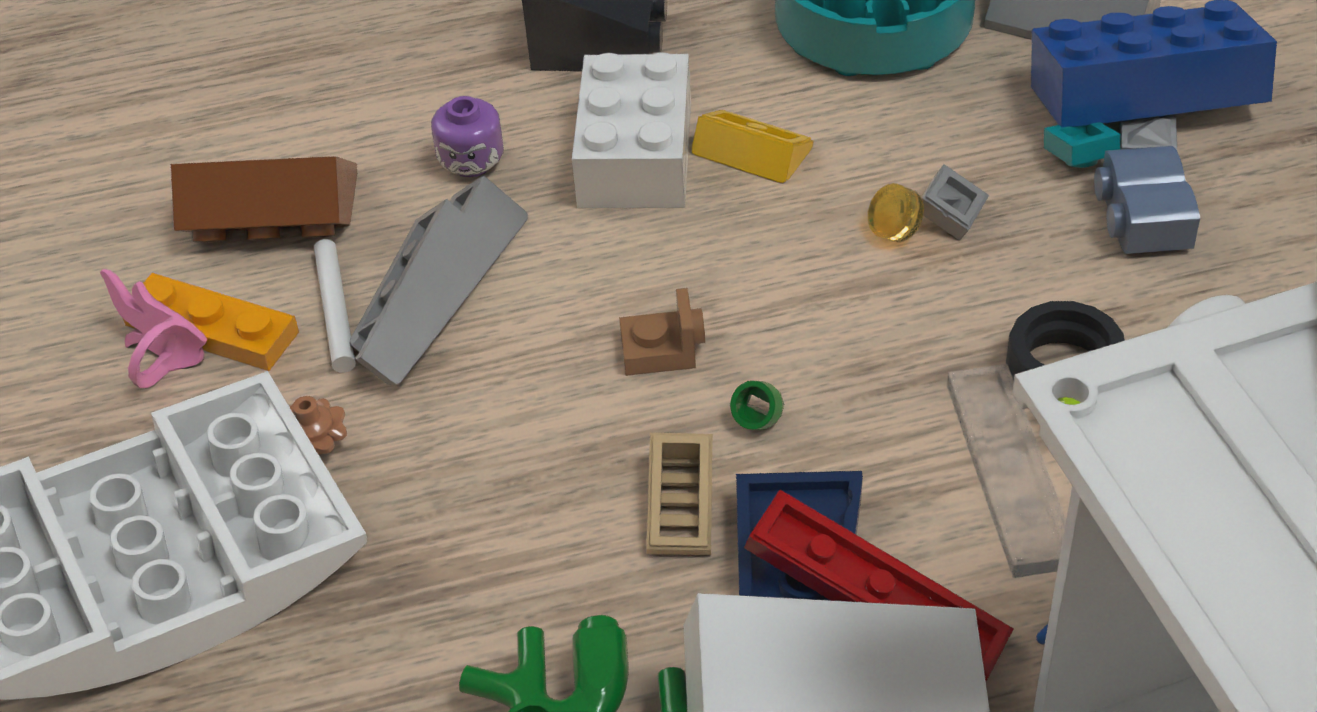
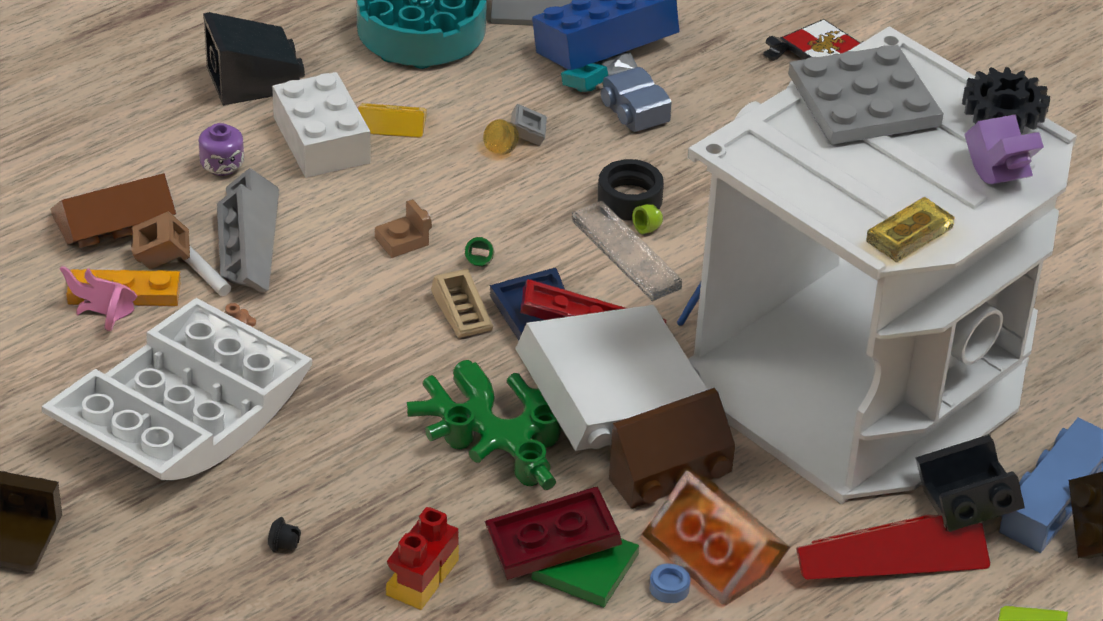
camera: 30 degrees left, 5 degrees down
(290, 261) = (160, 240): none -> medium nougat brick

